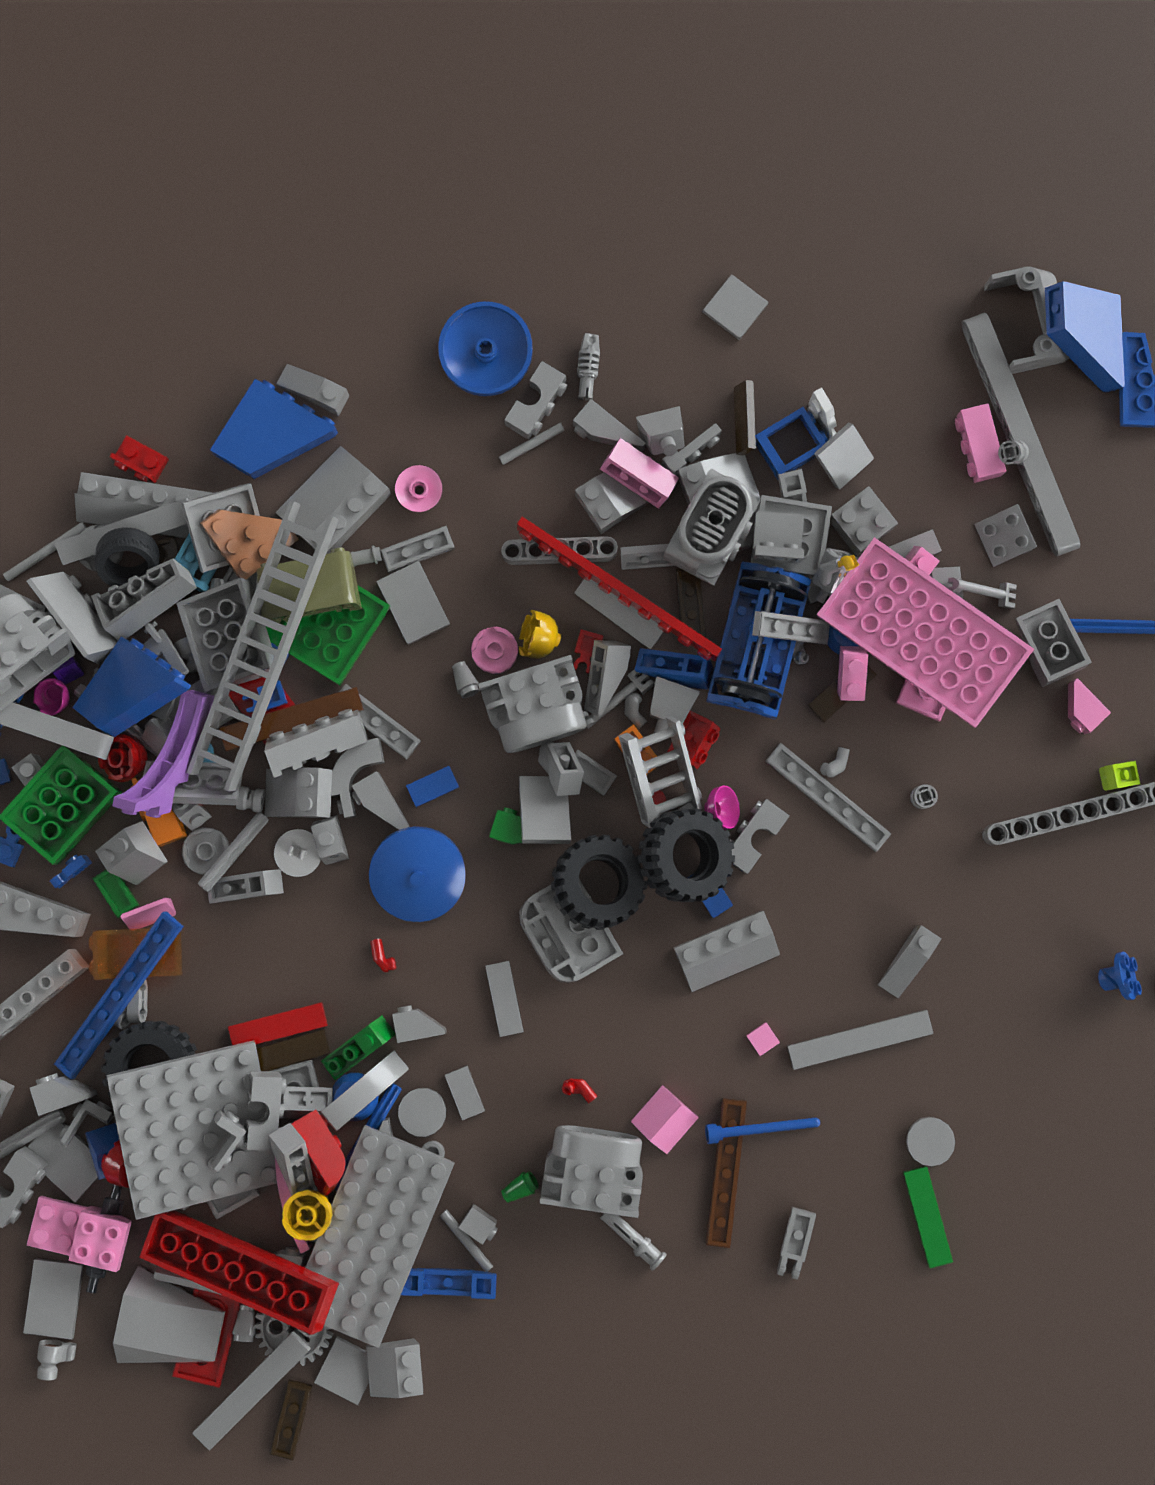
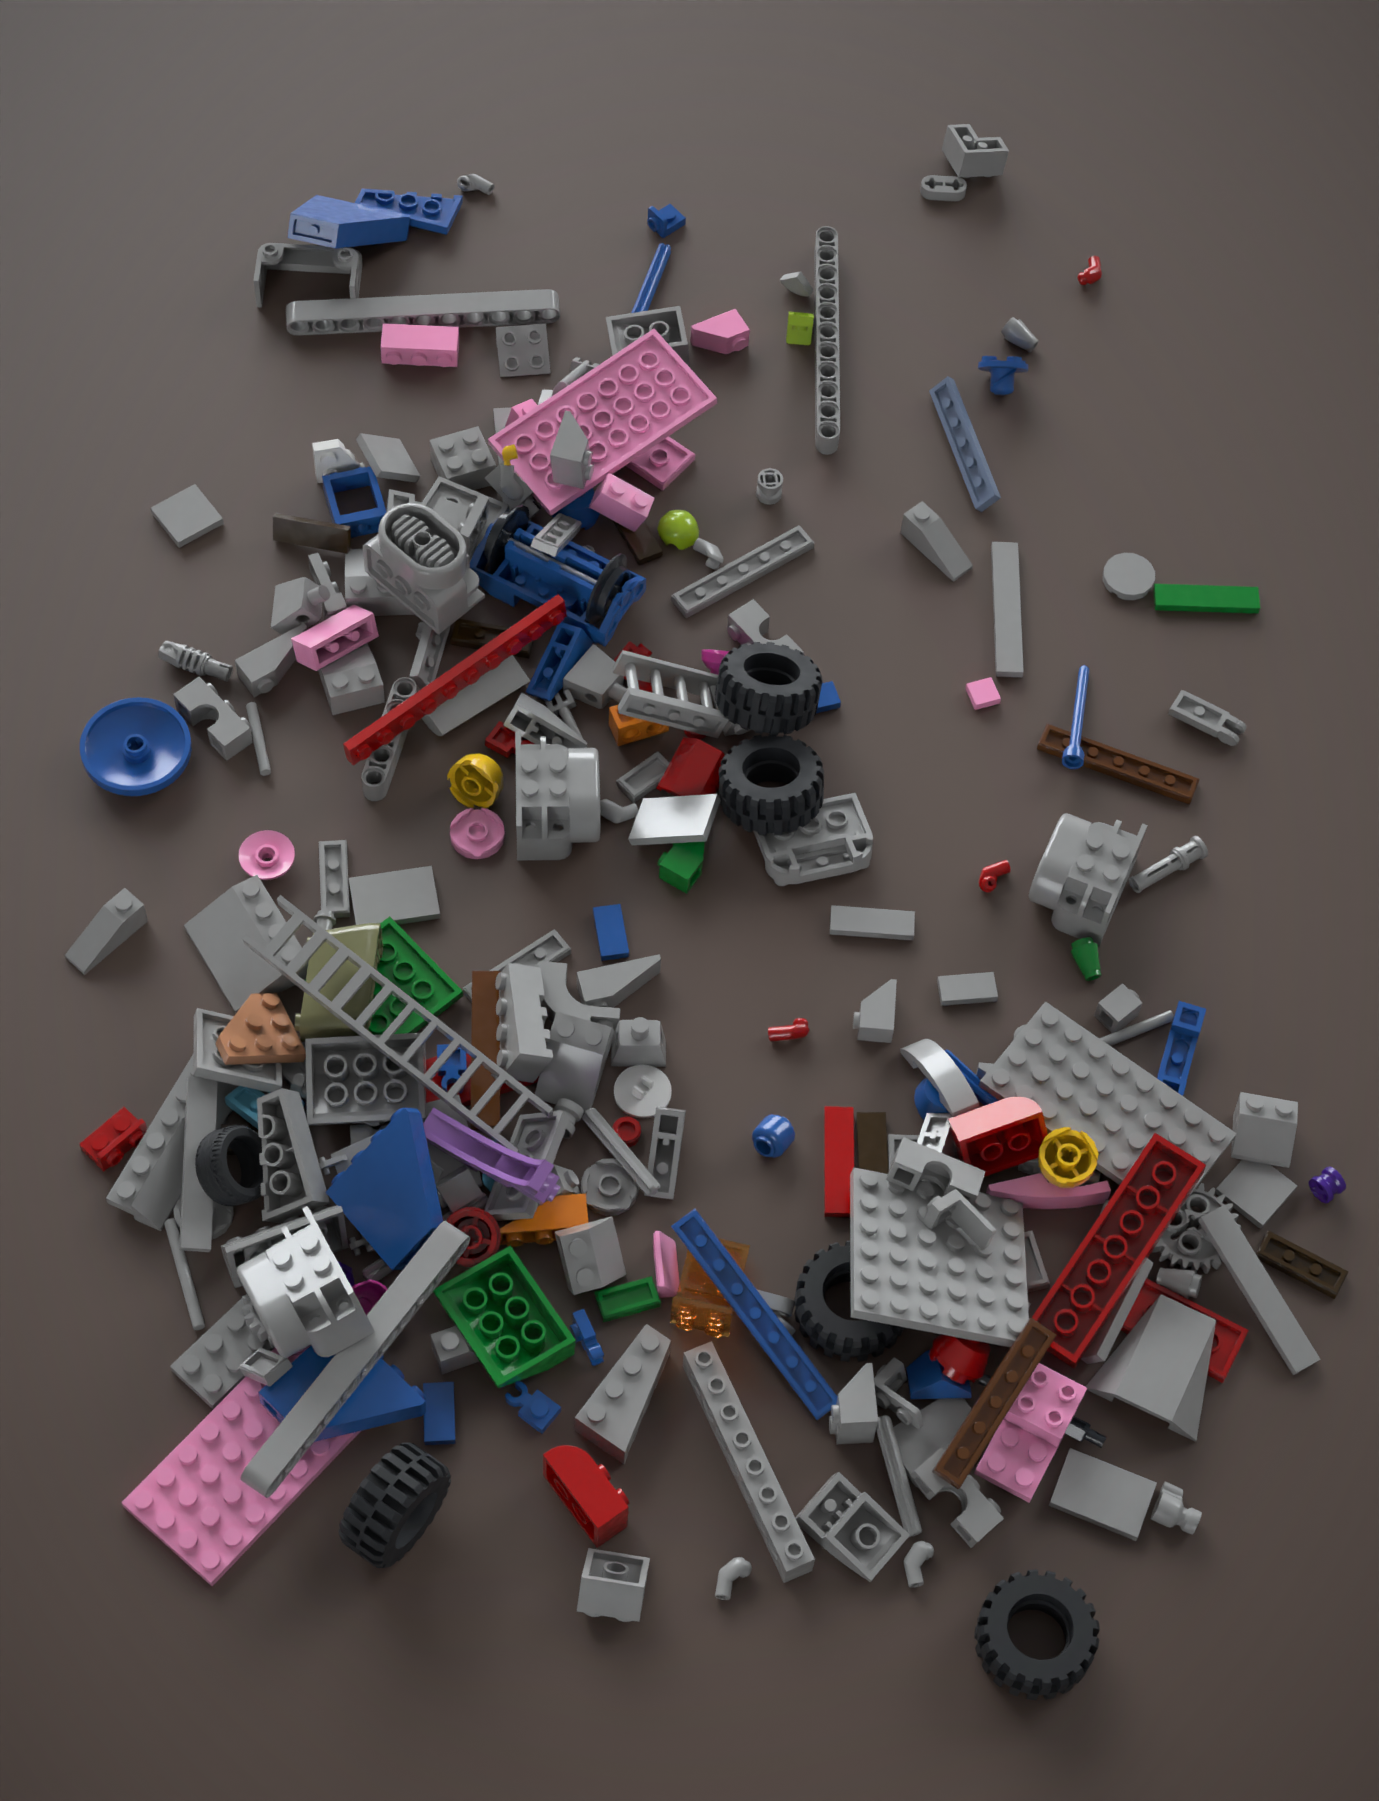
camera: 80 degrees left, 25 degrees down
(79, 1203) = (994, 1403): none -> reddish brown tile
(257, 850) = (628, 1130): none -> red tile
(269, 431) = (137, 989): blue slope -> none
(280, 968) = (773, 1136): none -> blue head
(292, 1158) = (997, 1153): light grey slope -> none
(358, 1047) = (888, 1080): green slope -> none
(363, 1430) = (1327, 1185): none -> dark purple wheel
(417, 874) = (706, 965): blue dish -> none
(422, 1112) = (978, 1036): light grey tile -> none
(465, 680) = (501, 867): light grey cone -> none
(564, 769) = (636, 787): light grey slope -> none
(598, 812) = (692, 769): none -> red slope
(632, 710) = (589, 718): light grey arm -> none
(664, 1119) = (1042, 802): bright pink slope -> none
(727, 950) = (878, 698): light grey slope -> none
(853, 729) = (678, 528): none -> lime hair
(868, 616) = (571, 454): none -> light grey slope
(1018, 452) = (444, 316): light grey wheel -> none
(1029, 960) = (964, 444): none -> sand blue plate

